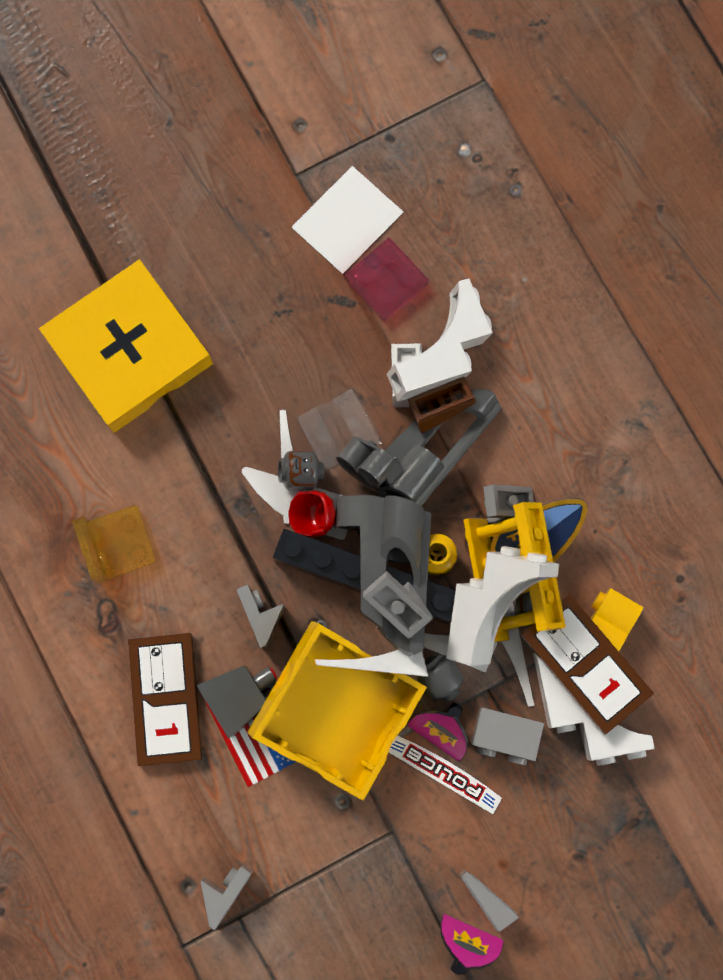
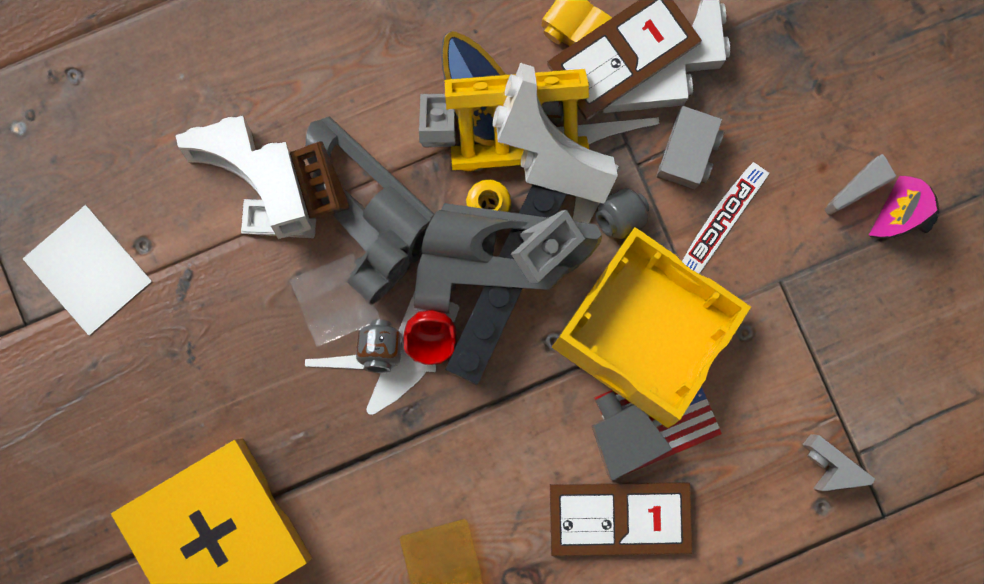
camera: 90 degrees left, 5 degrees up
(262, 623) = (547, 403): light grey slope -> none
(386, 279) = (164, 231): clear pink plate -> none
(390, 662) = (607, 263): white sticker -> none
(442, 730) = (680, 214): dark pink shield -> none

